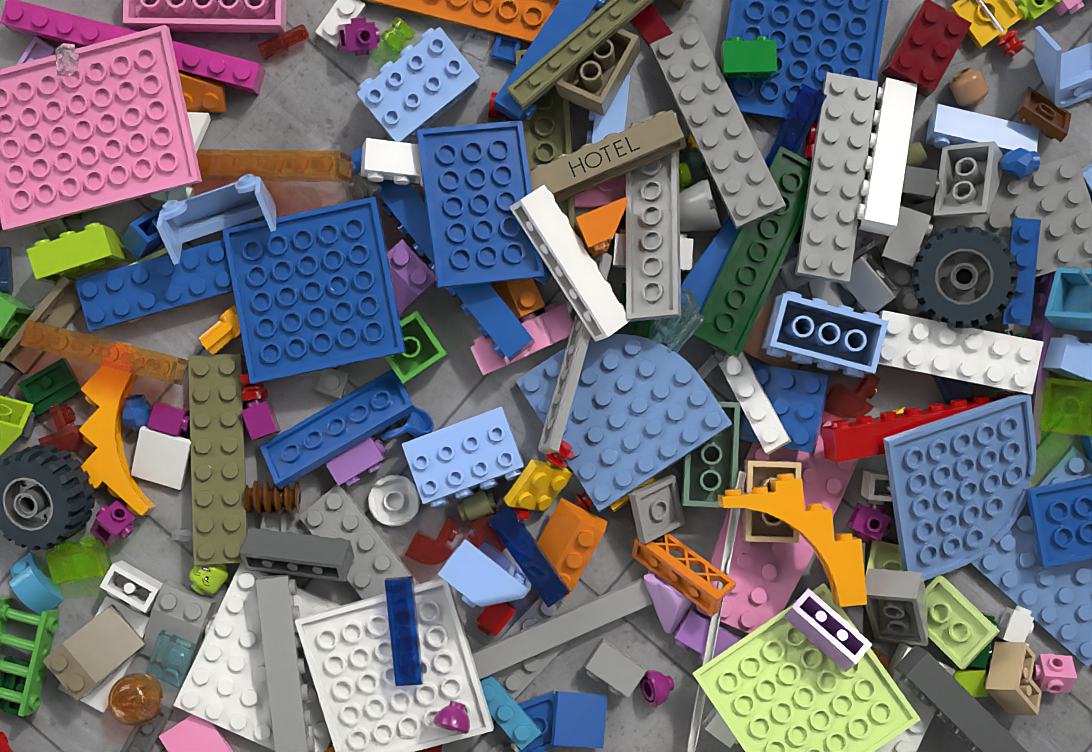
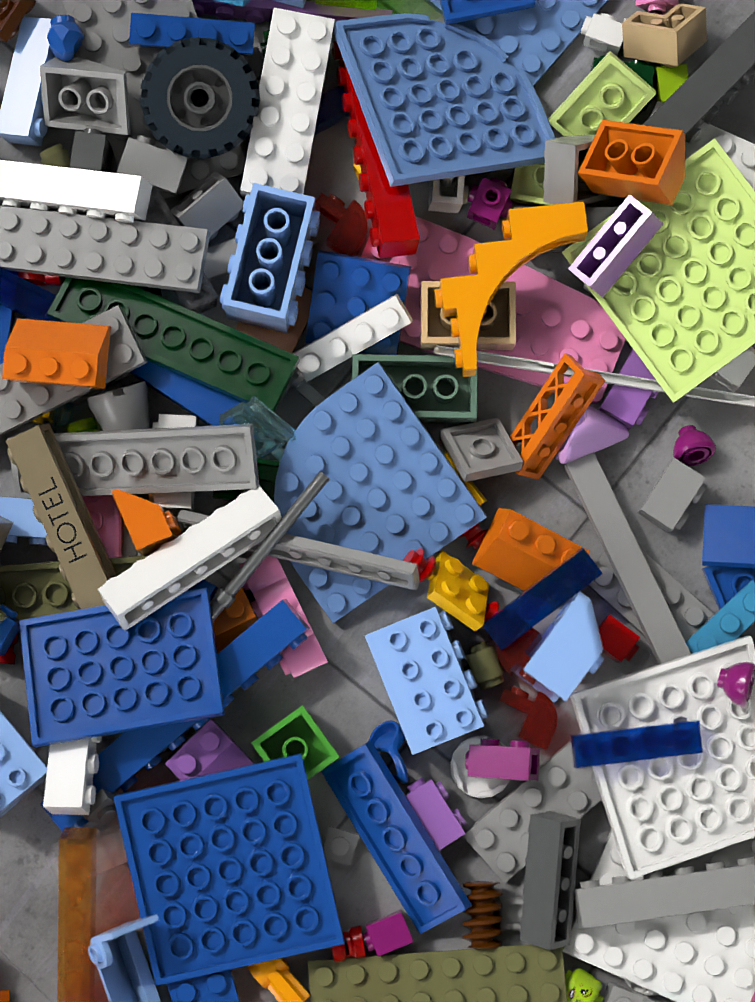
camera: 95 degrees left, 5 degrees down
(394, 519) = (503, 762): none -> magenta brick
(538, 292) = (226, 596): none -> dark grey bar
(745, 153) = (57, 353): none -> orange slope
(900, 650) = (636, 162): none -> orange slope

